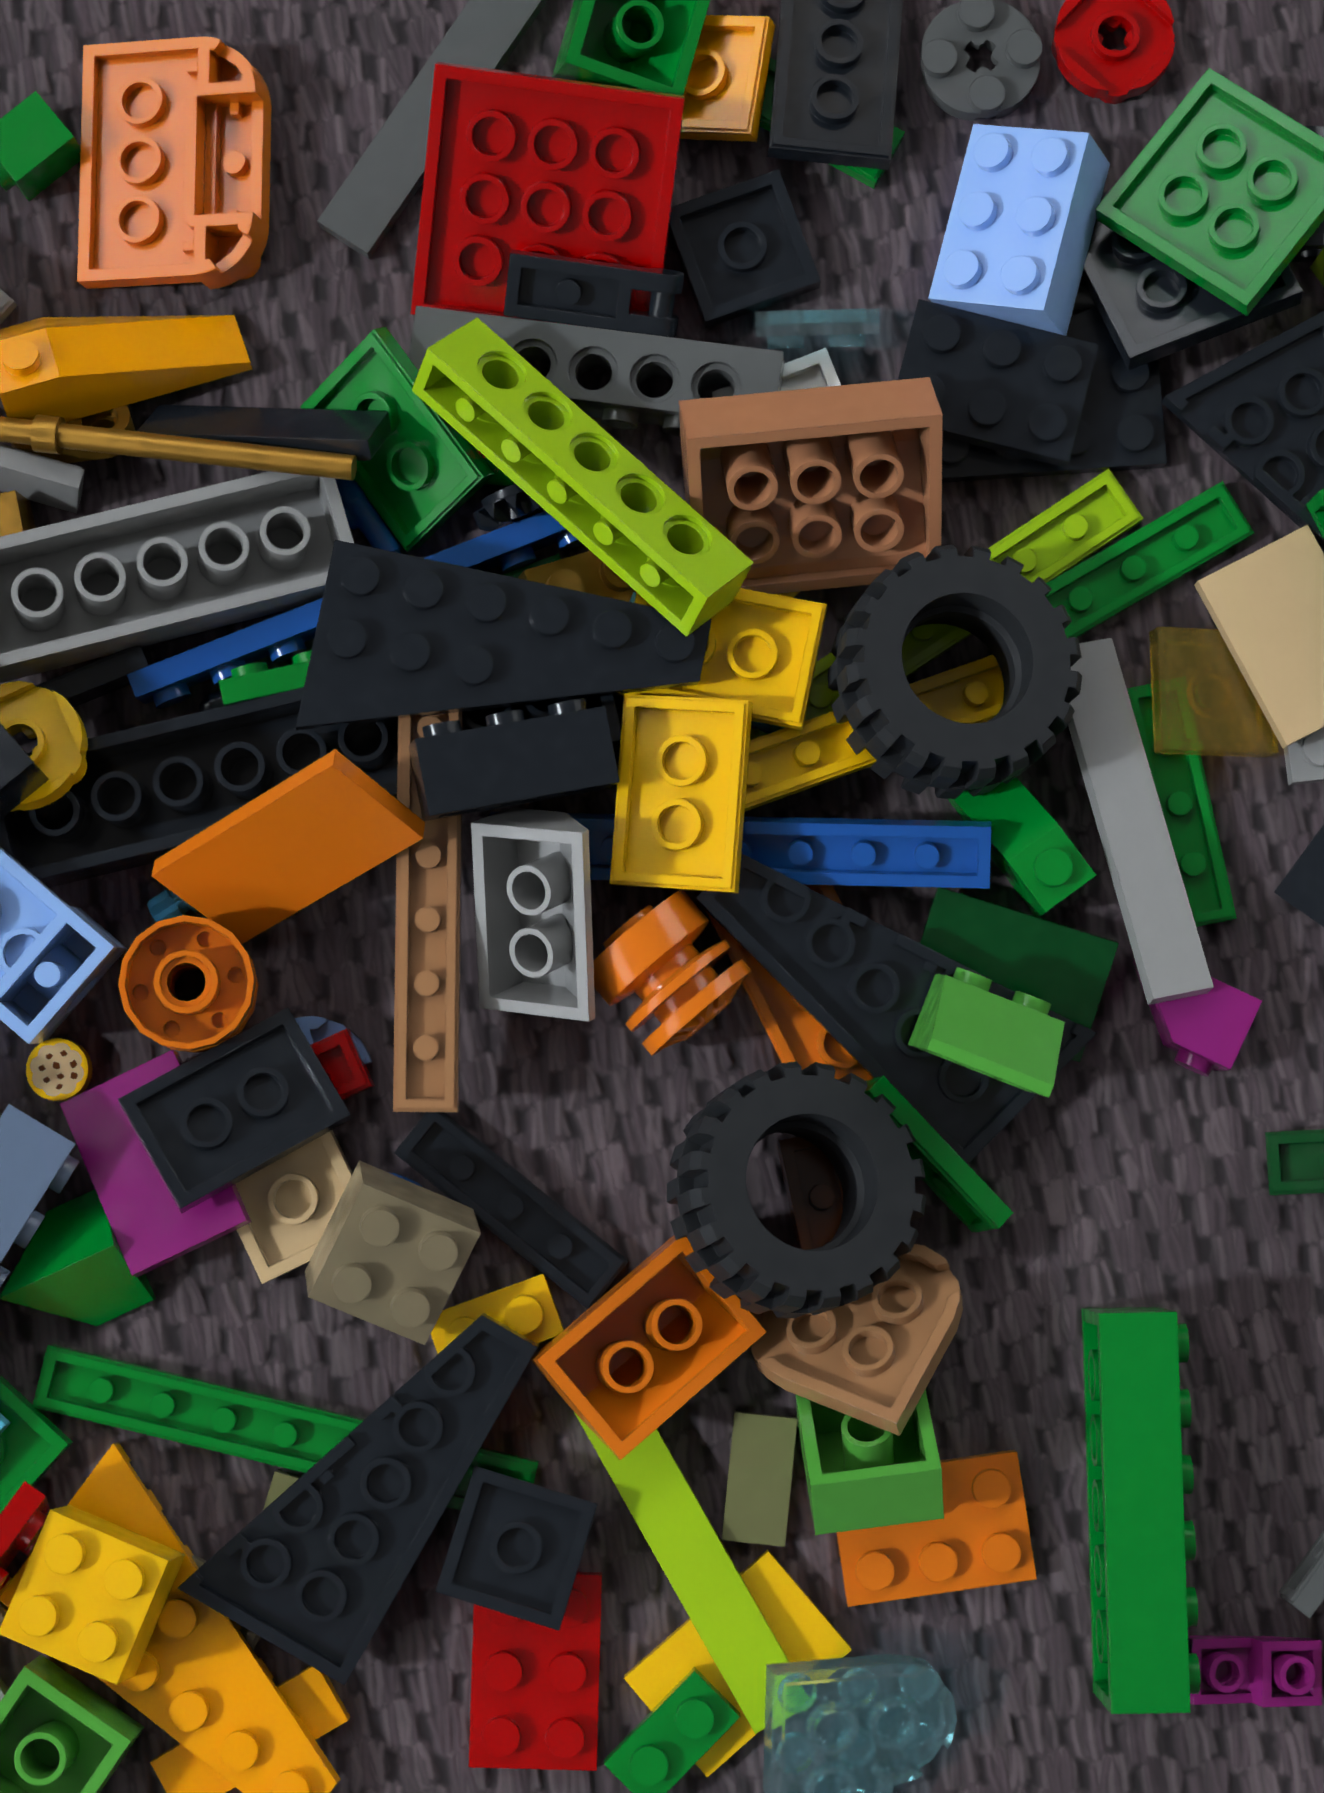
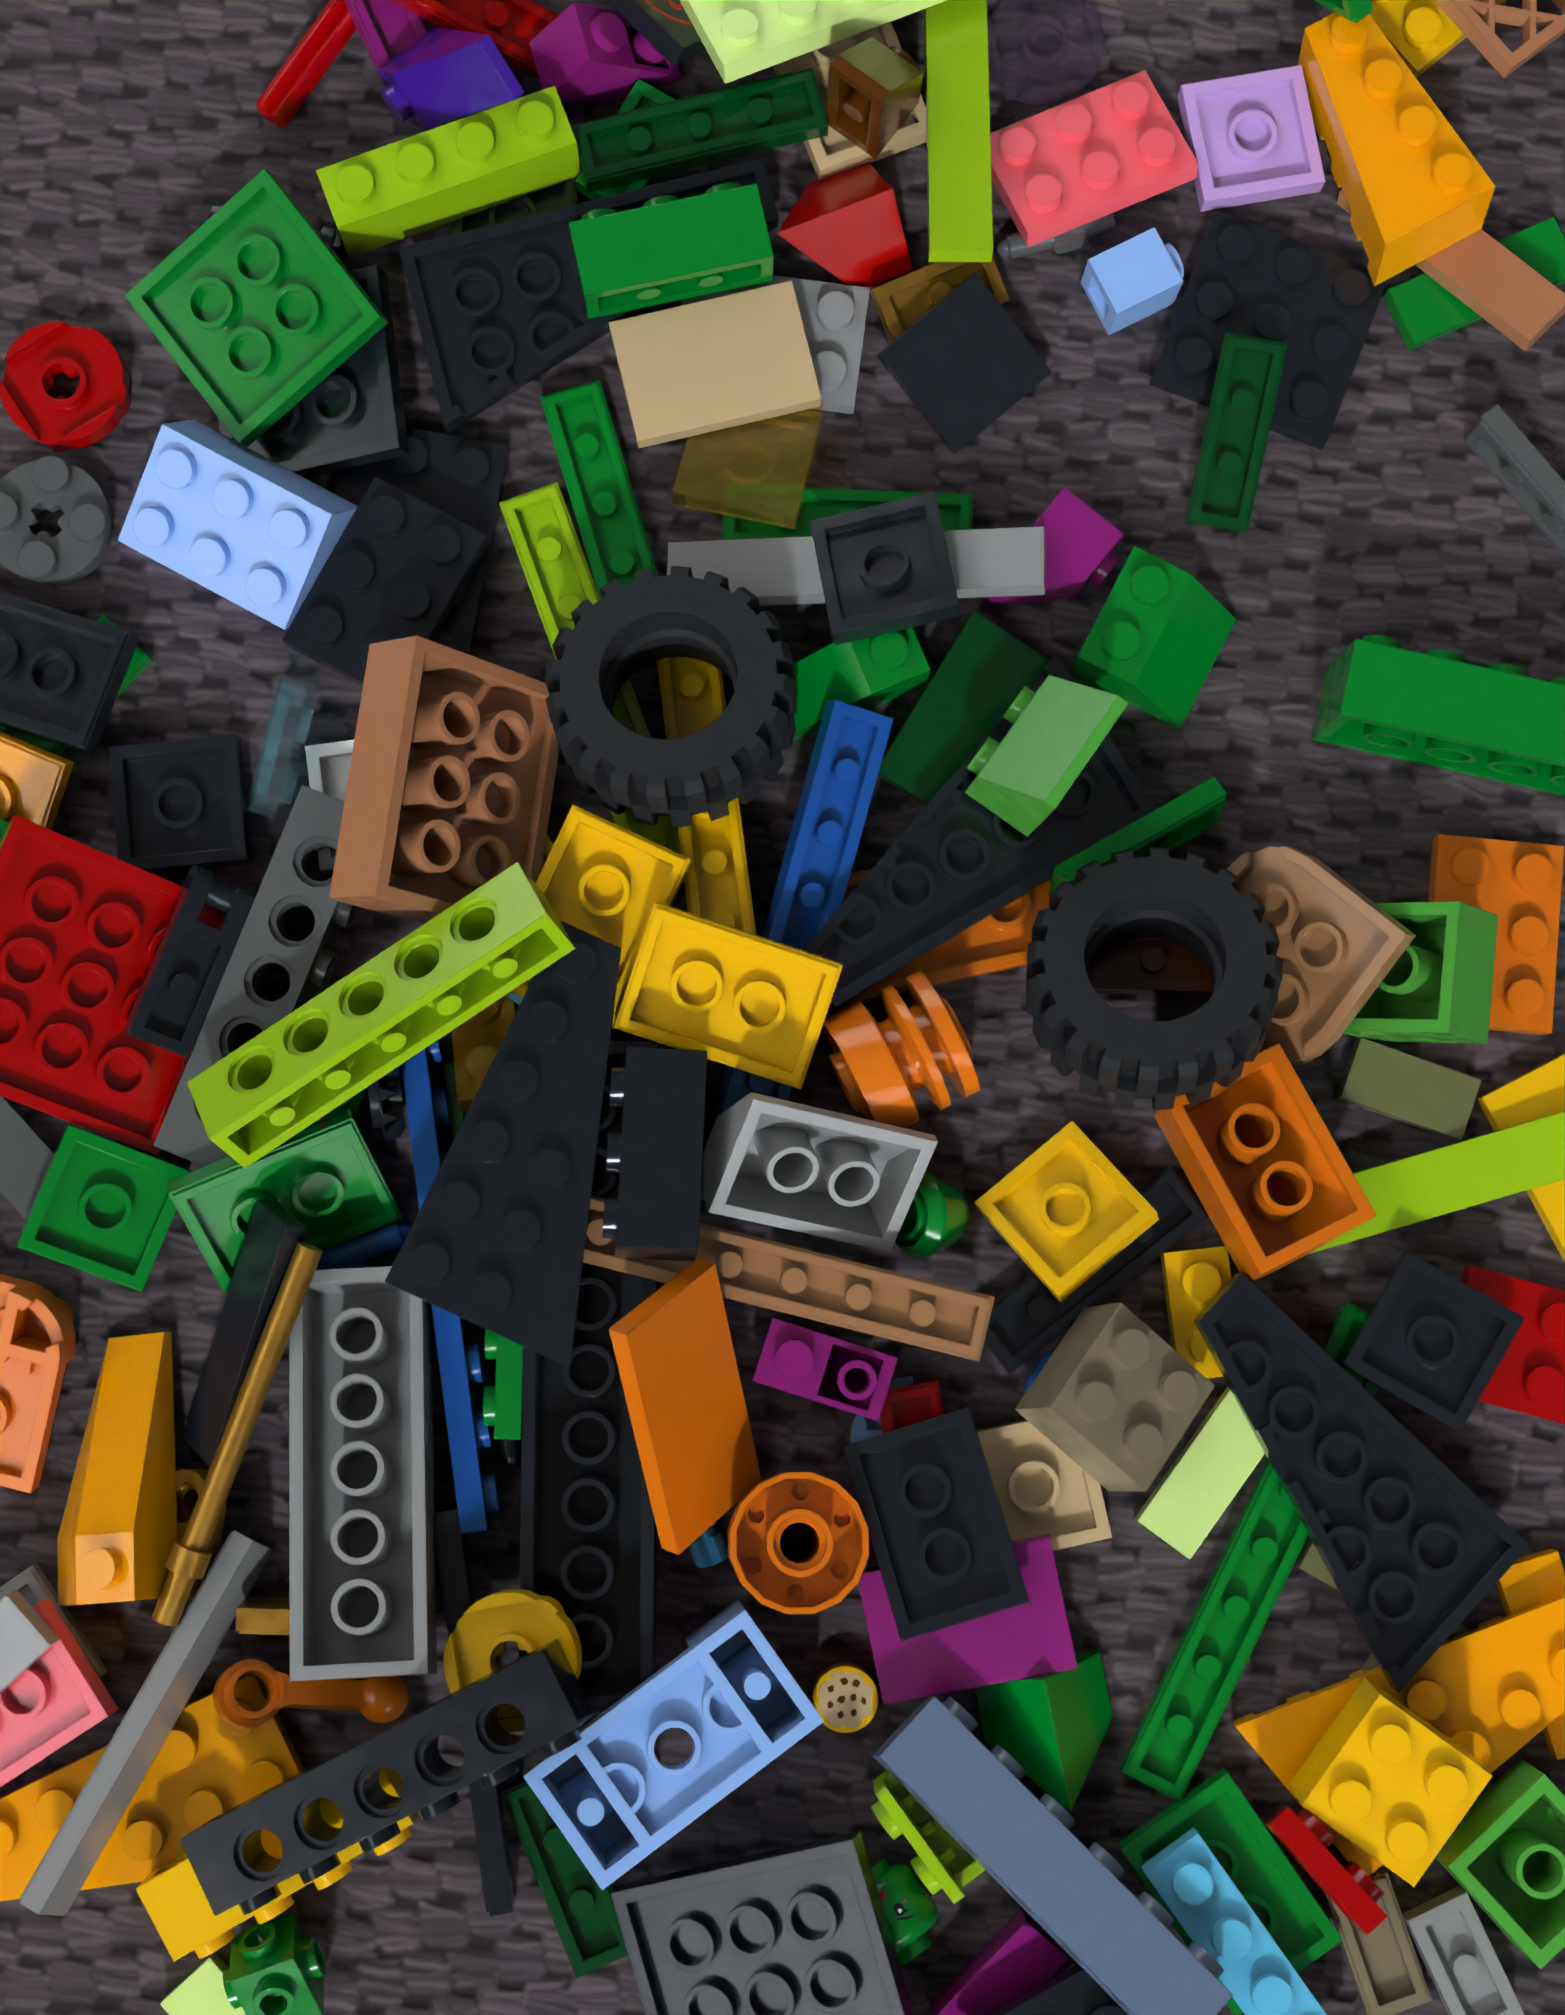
camera: 85 degrees left, 0 degrees up
(336, 1360) = (1203, 1478): none -> yellowish green tile
(349, 276) = (102, 1208): none -> green plate
(356, 972) = (824, 1368): none -> magenta slope
(523, 1042) = (934, 1218): none -> green cone
(559, 1168) = (1066, 1211): none -> yellow plate
(1131, 843) = (885, 568): none -> black plate
(1138, 1127) = (1154, 639): none -> green slope

